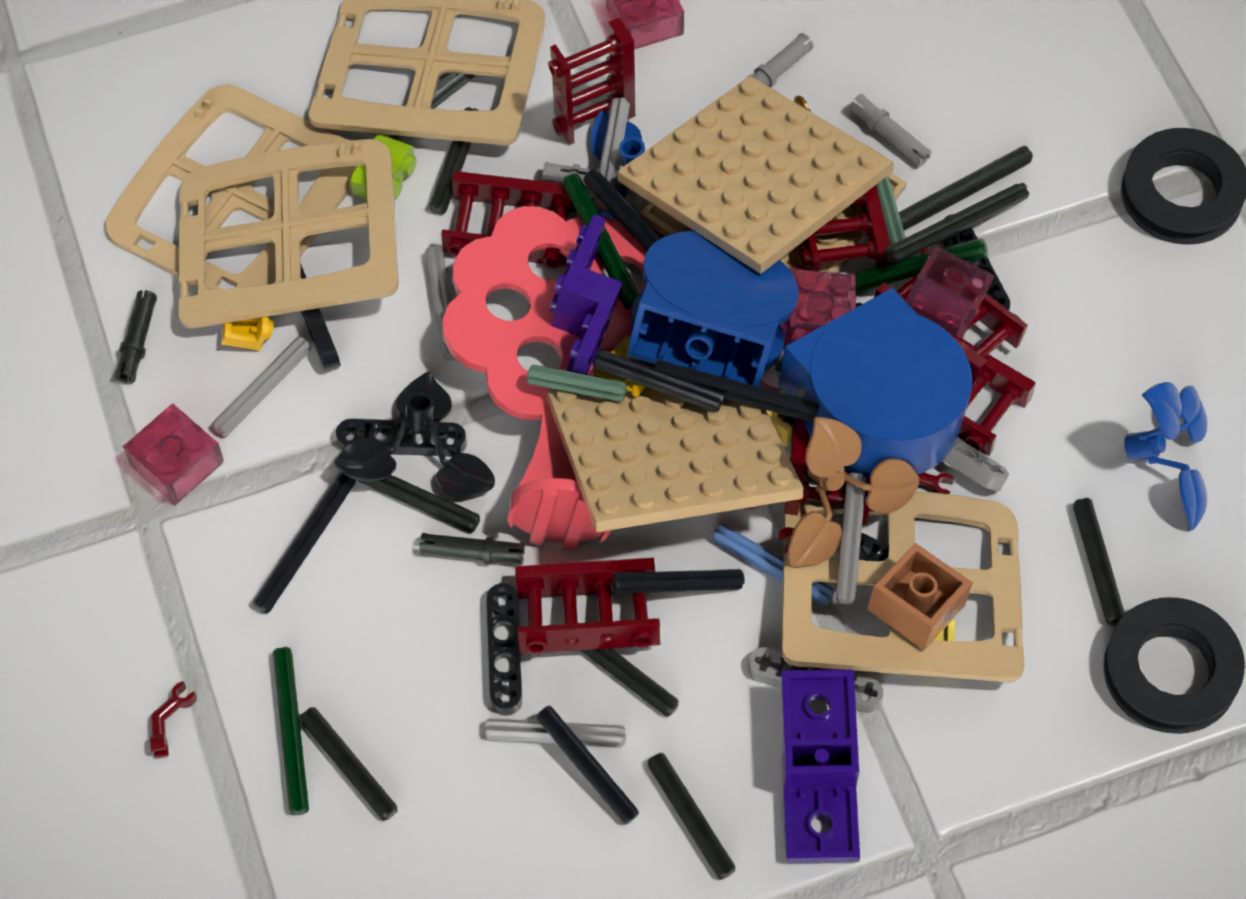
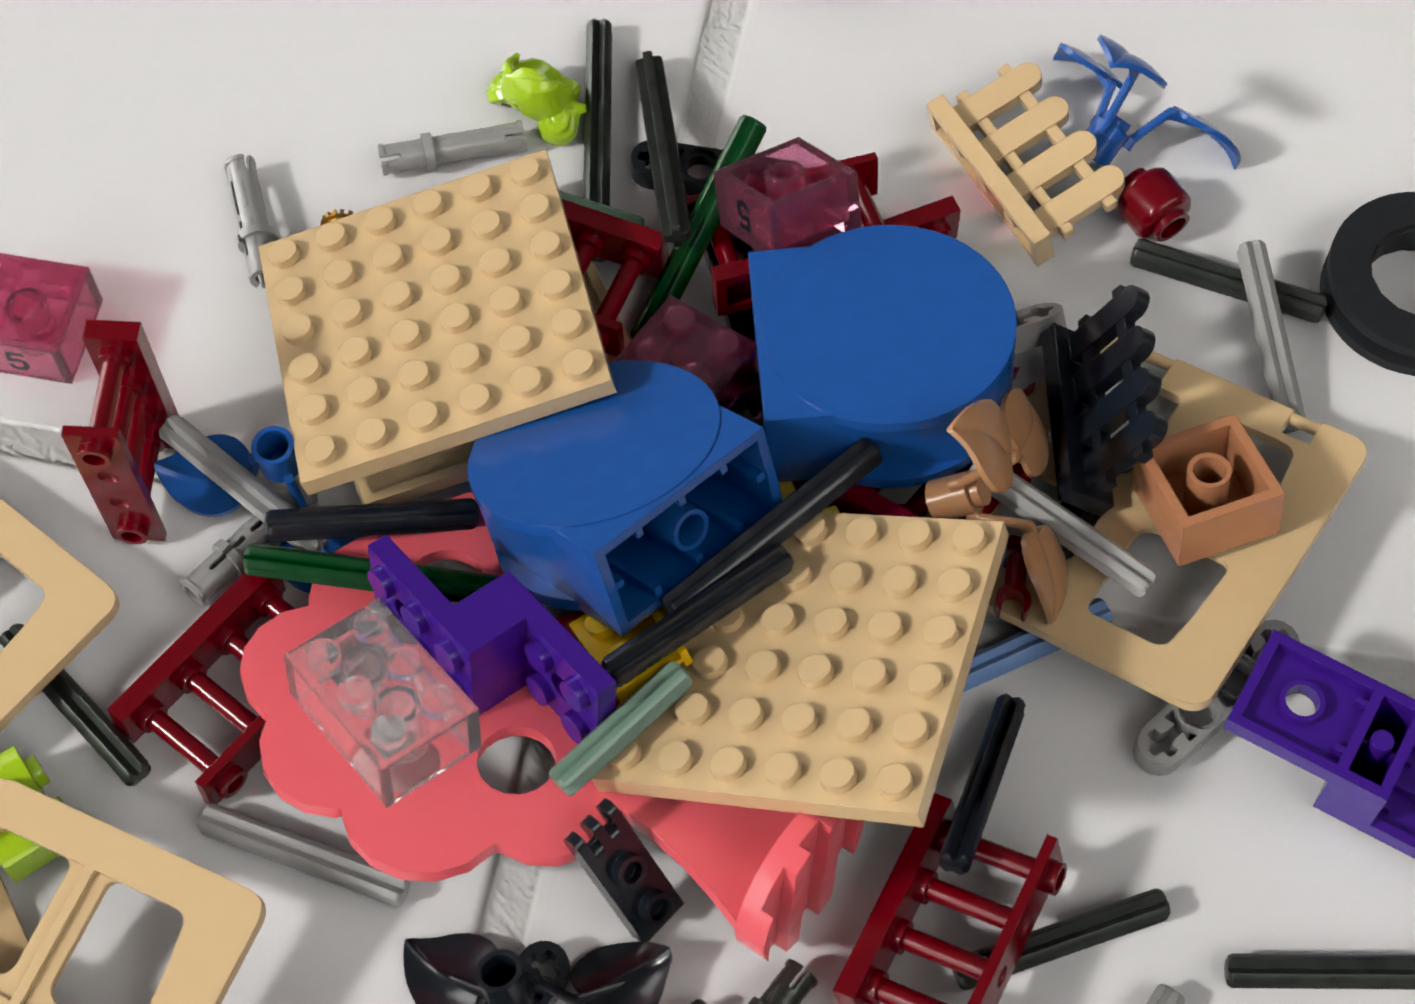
camera: 60 degrees left, 0 degrees up
(514, 437) = (624, 872): none -> black hinge
(524, 276) = (383, 701): none -> clear brick
(938, 515) = (1084, 416): none -> black fence
(956, 150) = (540, 95): none -> lime hair
(1072, 596) = (1269, 327): none -> light grey axle
(1082, 387) = (1026, 181): none -> tan fence
(1117, 493) = (1154, 204): none -> dark red head

